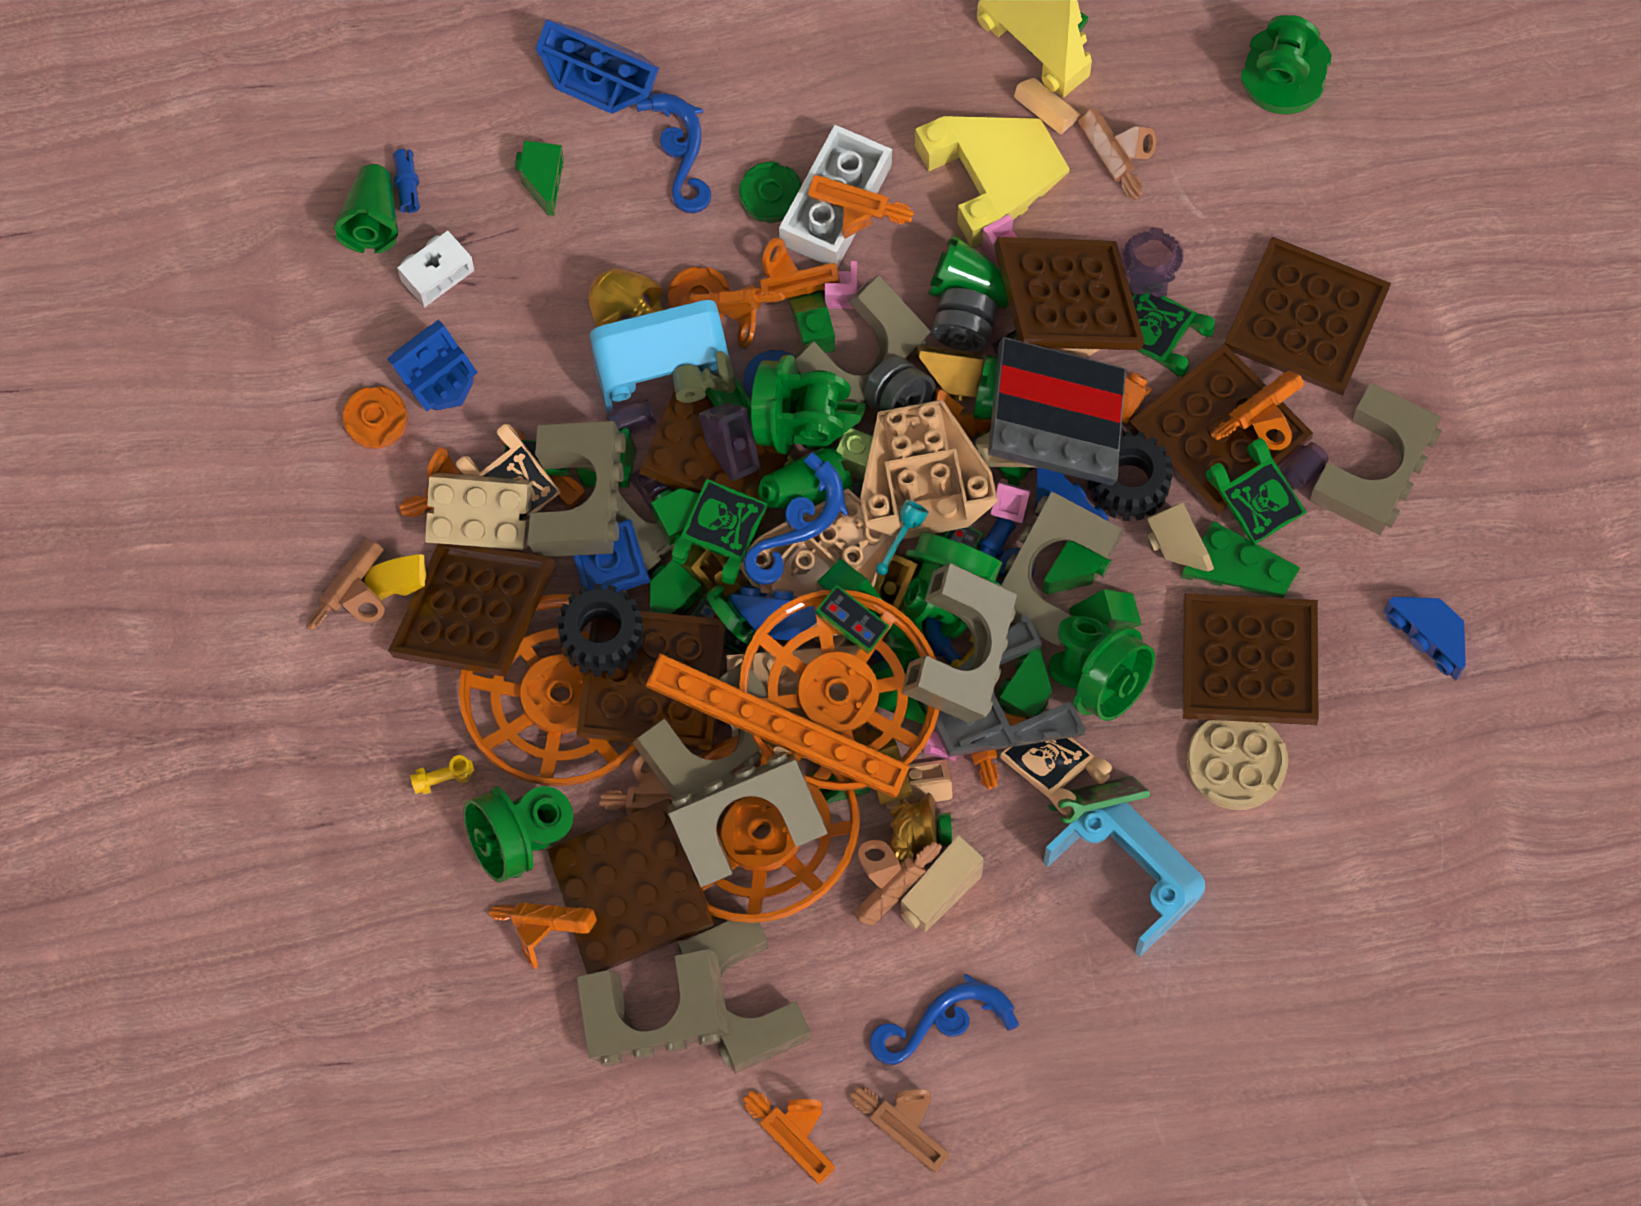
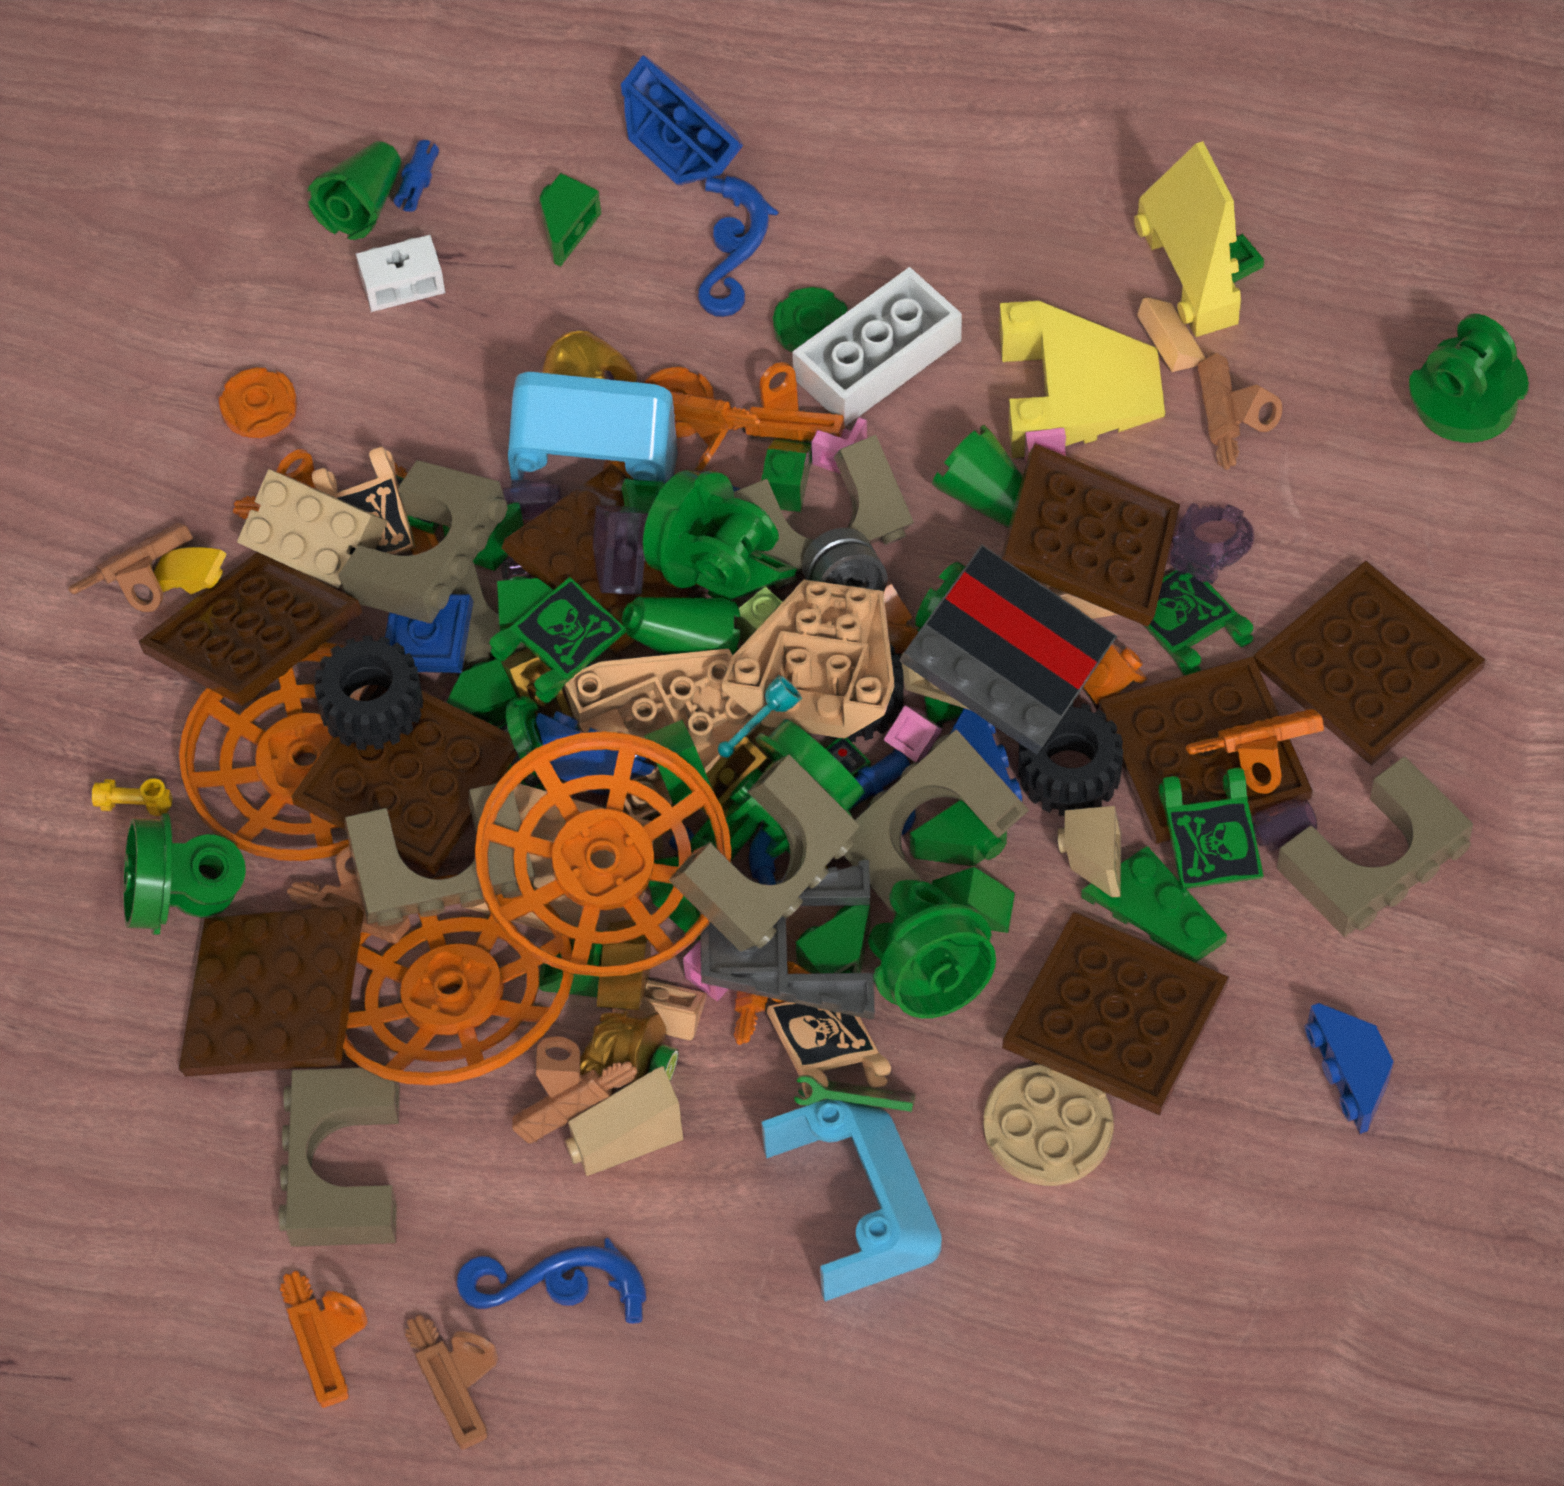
camera: 25 degrees right, 10 degrees down
(434, 368) = (341, 369): blue piece -> none
(537, 920) = (150, 986): orange piece -> none
(692, 383) = (609, 473): olive leg -> none
(698, 1017) = (266, 1158): dark tan arch -> none
(777, 726) = (509, 863): orange tile -> none
(777, 781) = (479, 925): dark tan arch -> none
(803, 531) = (651, 672): blue plant -> none
(852, 619) = (650, 778): tile -> none
(858, 204) = (890, 356): orange piece -> none
(954, 370) = (912, 568): pearl gold slope -> none
(964, 319) = (958, 522): flat silver wheel -> none

